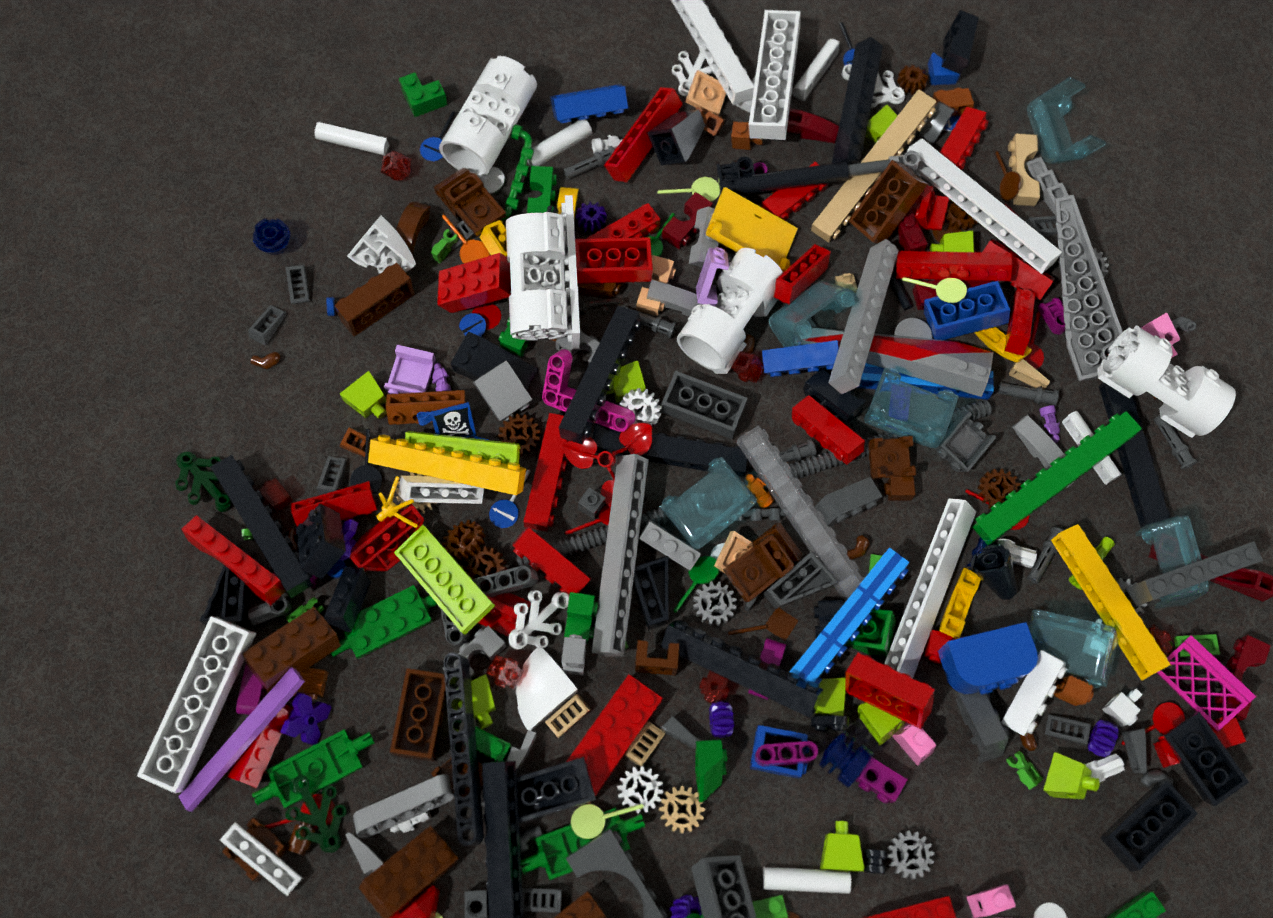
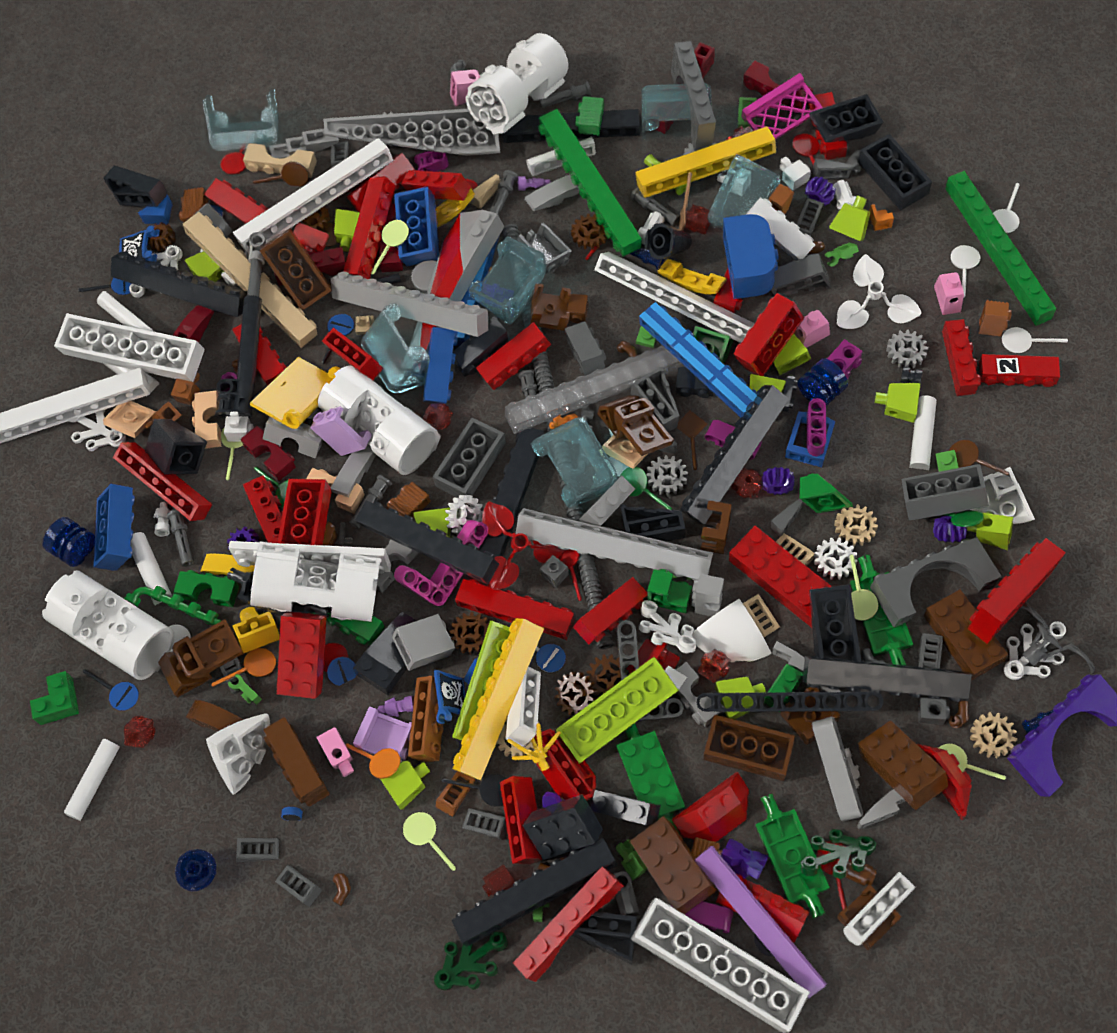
camera: 70 degrees left, 5 degrees down
(324, 420) = (420, 829): none -> yellowish green piece
(355, 689) = (716, 811): none -> red wedge
(379, 374) = (383, 763): none -> orange piece
(389, 332) = (332, 744): none -> bright pink torso
(485, 631) = (676, 676): none -> white sticker
(571, 69) = (68, 541): none -> clear blue wheel
(650, 355) = (409, 500): none -> dark orange brick
(700, 161) = (205, 407): none -> light nougat arch
(709, 187) = (236, 427): none -> white brick
(840, 261) = (343, 324): none -> blue piece
(895, 58) = (137, 244): none -> flag
(967, 847) = (870, 273): none -> white plant
(1014, 126) = (233, 162): none -> red piece
(1036, 599) = (697, 219): none -> clear red brick
(1054, 584) = (682, 221): none -> medium nougat piece
(1082, 814) = (880, 219): none -> orange panel
(1145, 467) = (590, 116): none -> green brick

